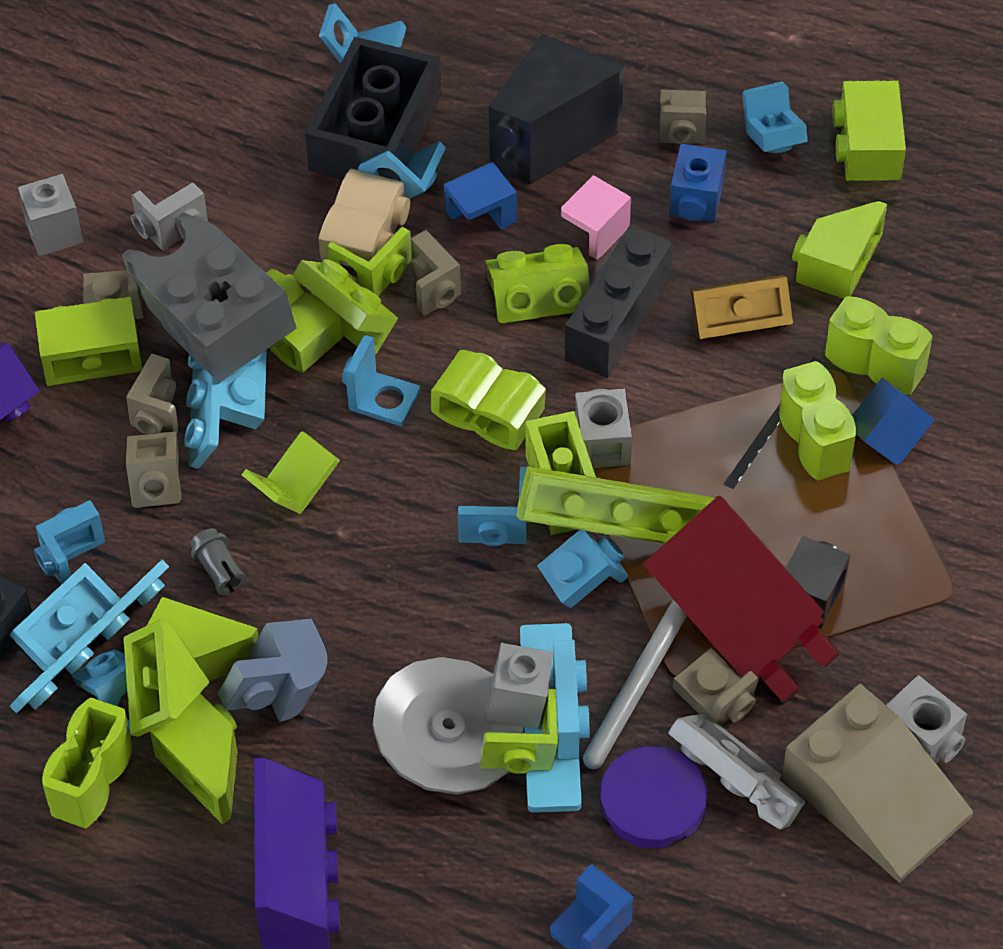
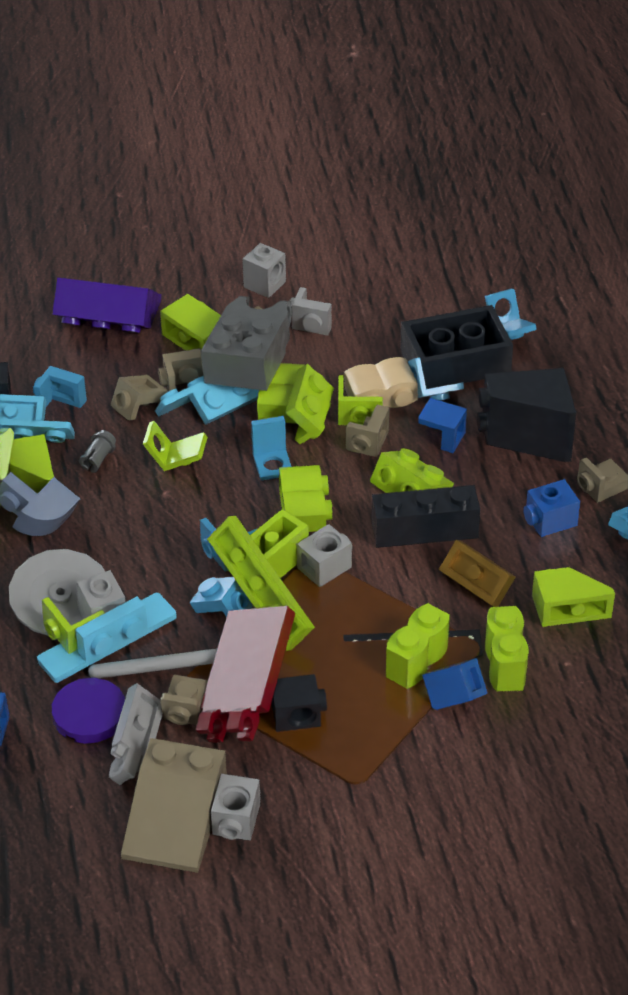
camera: 55 degrees right, 10 degrees down
(600, 212) = (483, 472): bright pink panel -> none

